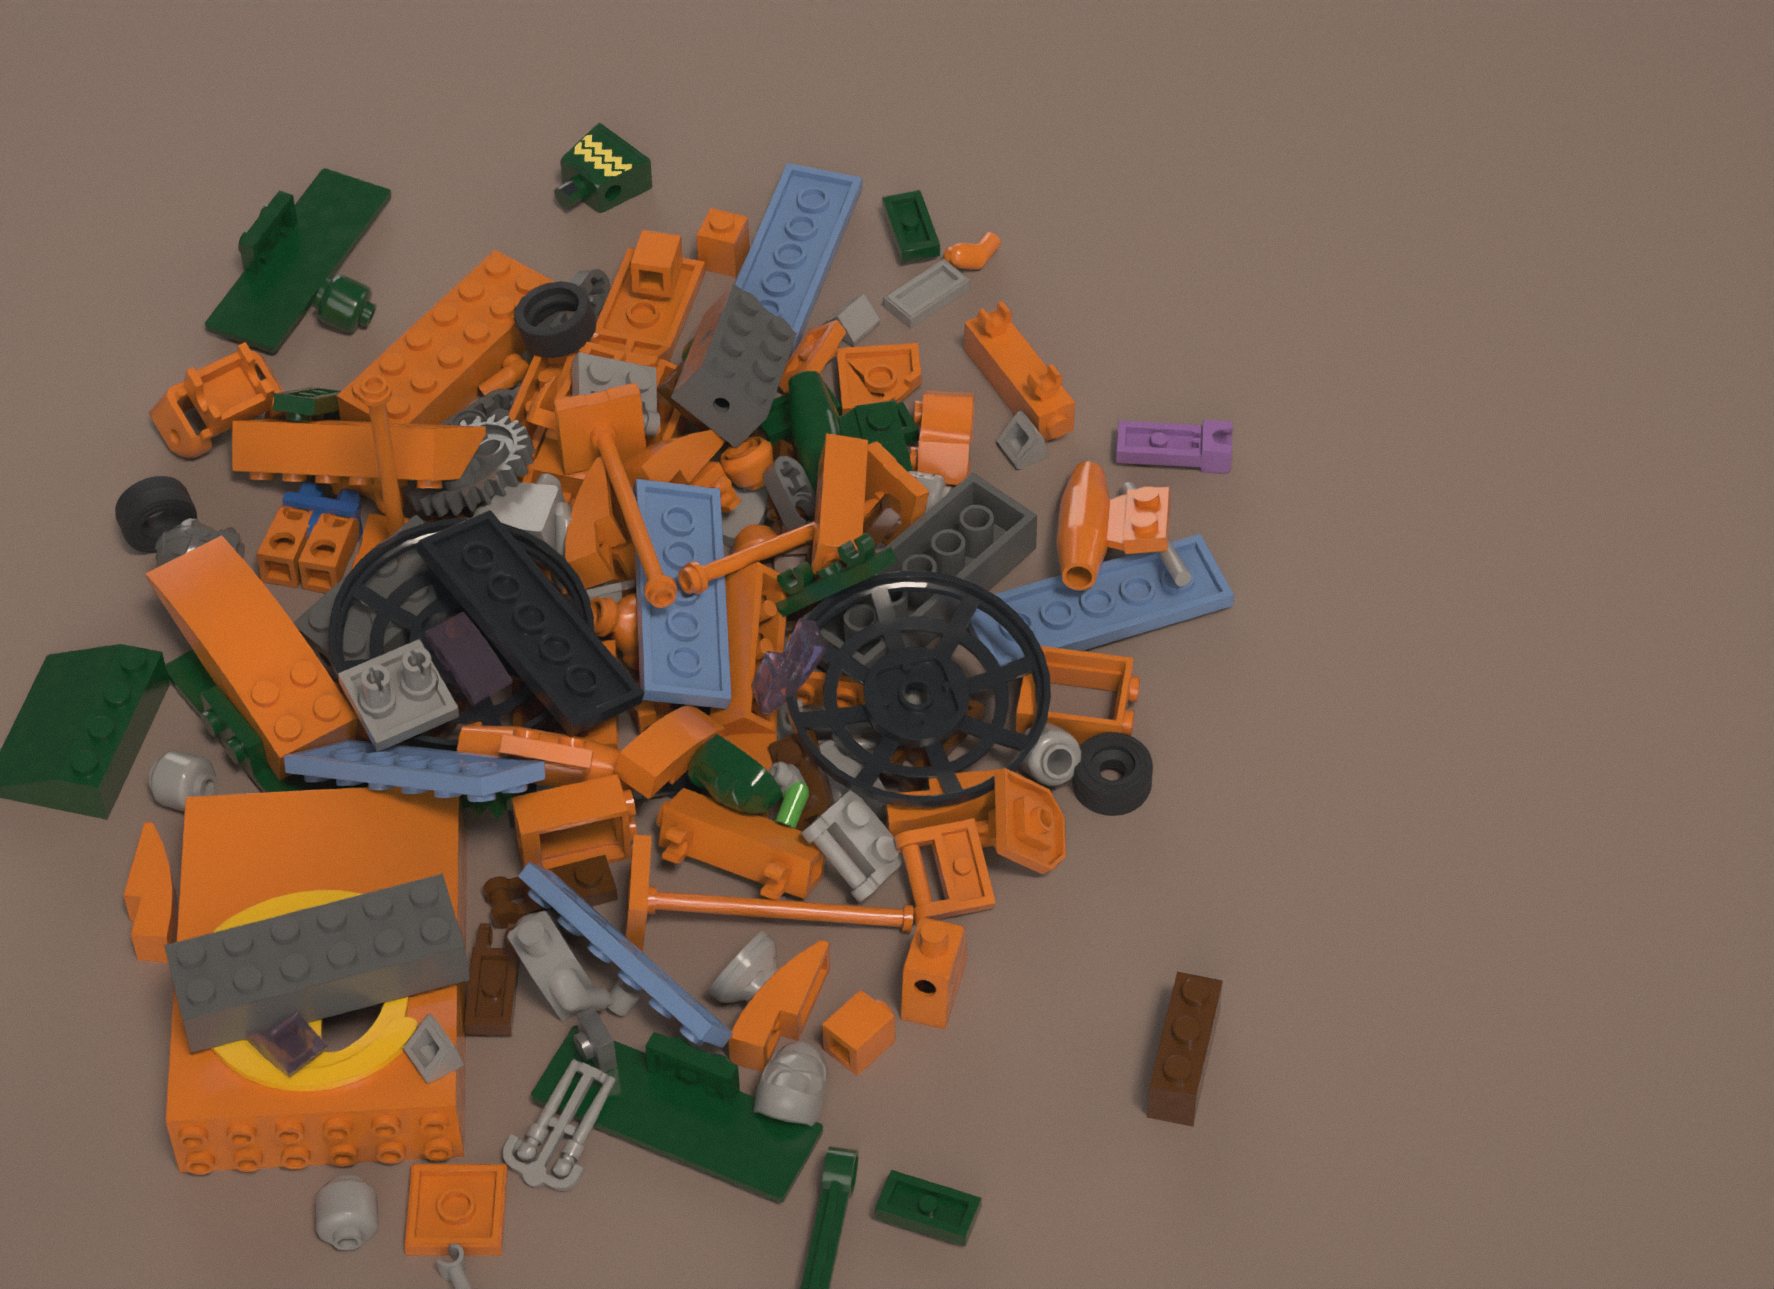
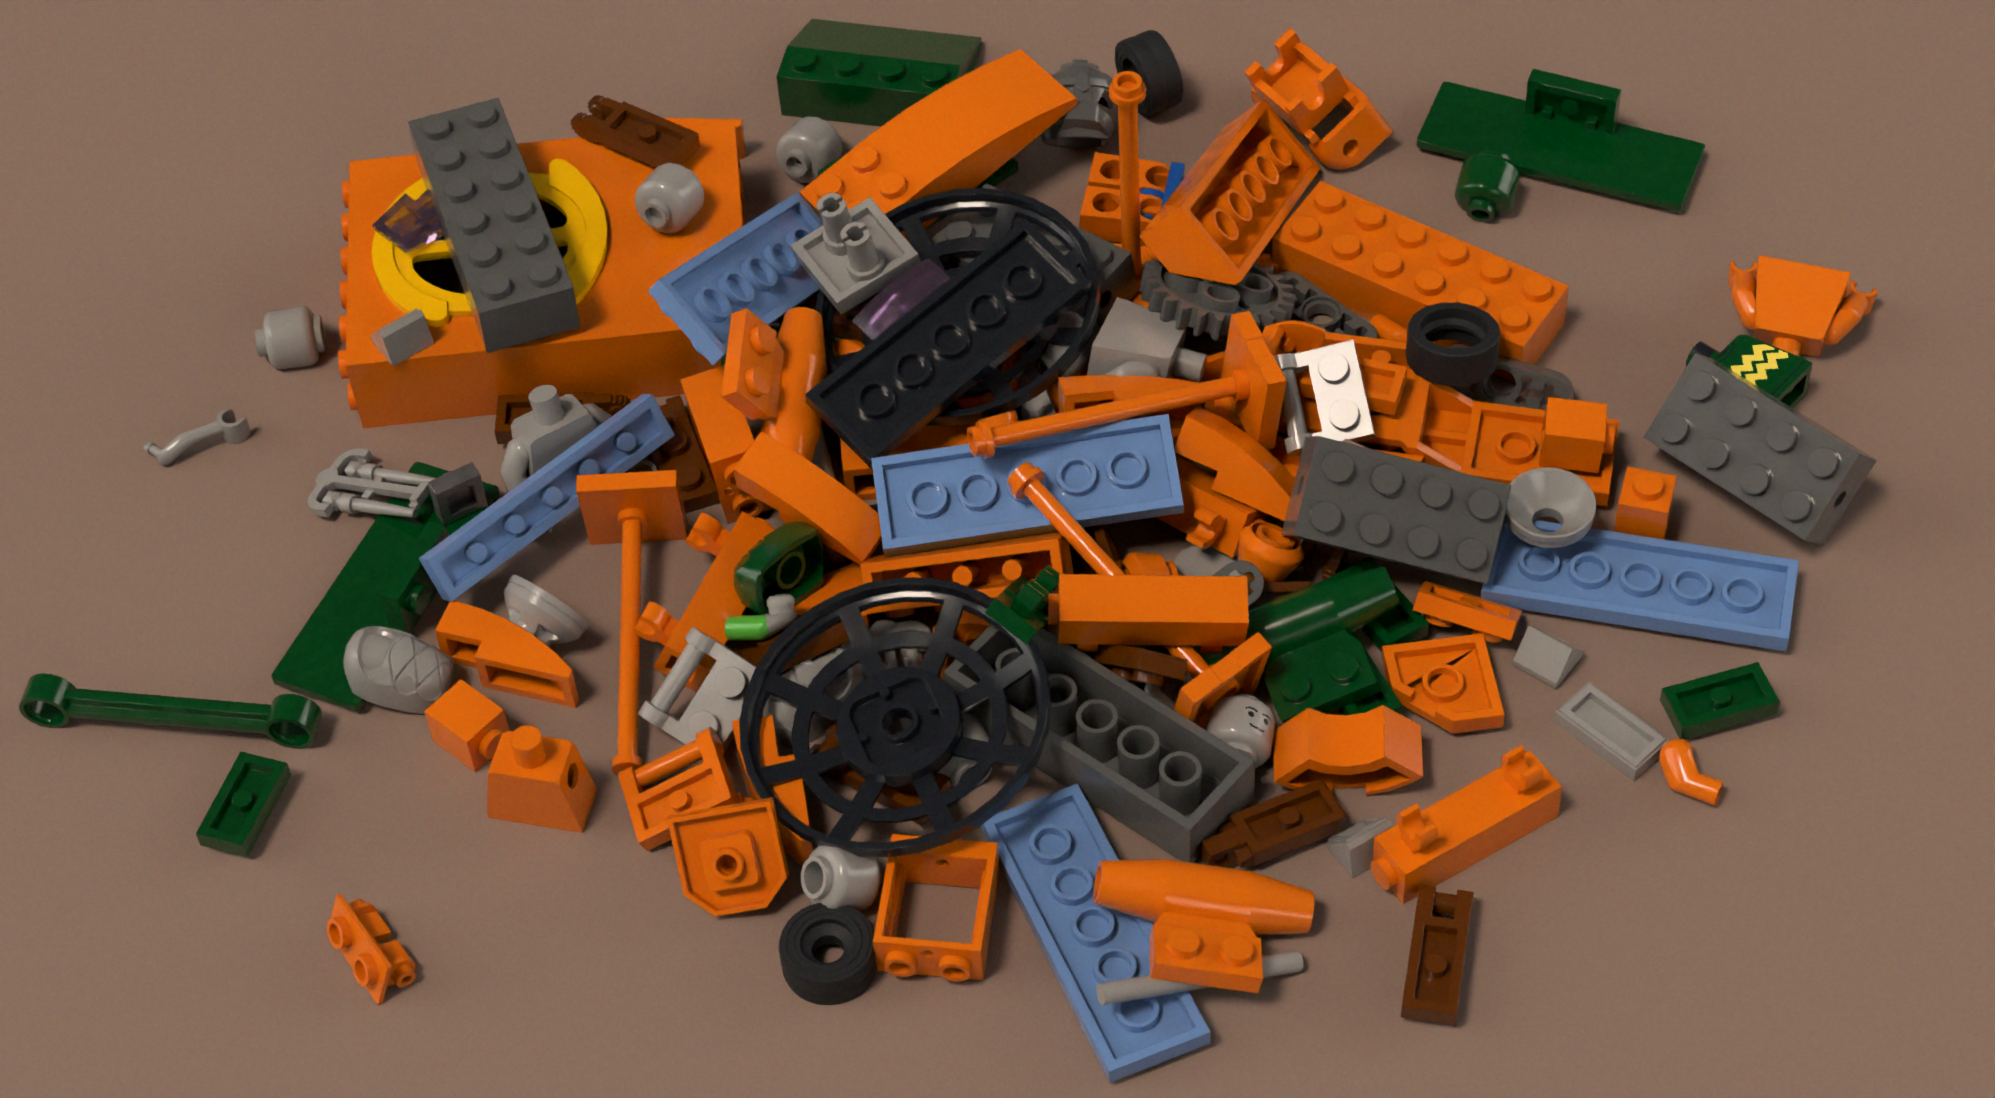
camera: 90 degrees right, 0 degrees up
(200, 863) = (635, 132): none -> reddish brown hinge
(303, 829) = (669, 198): none -> light grey head
(307, 403) = (1303, 155): dark green plate -> none
(456, 1206) = (295, 425): orange tile -> none
(526, 134) = (1797, 304): none -> orange torso
(687, 160) = (1759, 449): none -> dark grey brick
(734, 267) = (1551, 494): none -> light grey piece
(786, 672) = (895, 572): slope -> none
(1004, 471) = (1275, 827): none -> reddish brown hinge
(1095, 1101) = (357, 933): none -> orange hinge
(1127, 402) = (1437, 956): none -> reddish brown plate
(1177, 444) = (1372, 1004): medium lavender plate -> none
(1184, 1049) = (419, 1032): reddish brown brick -> none

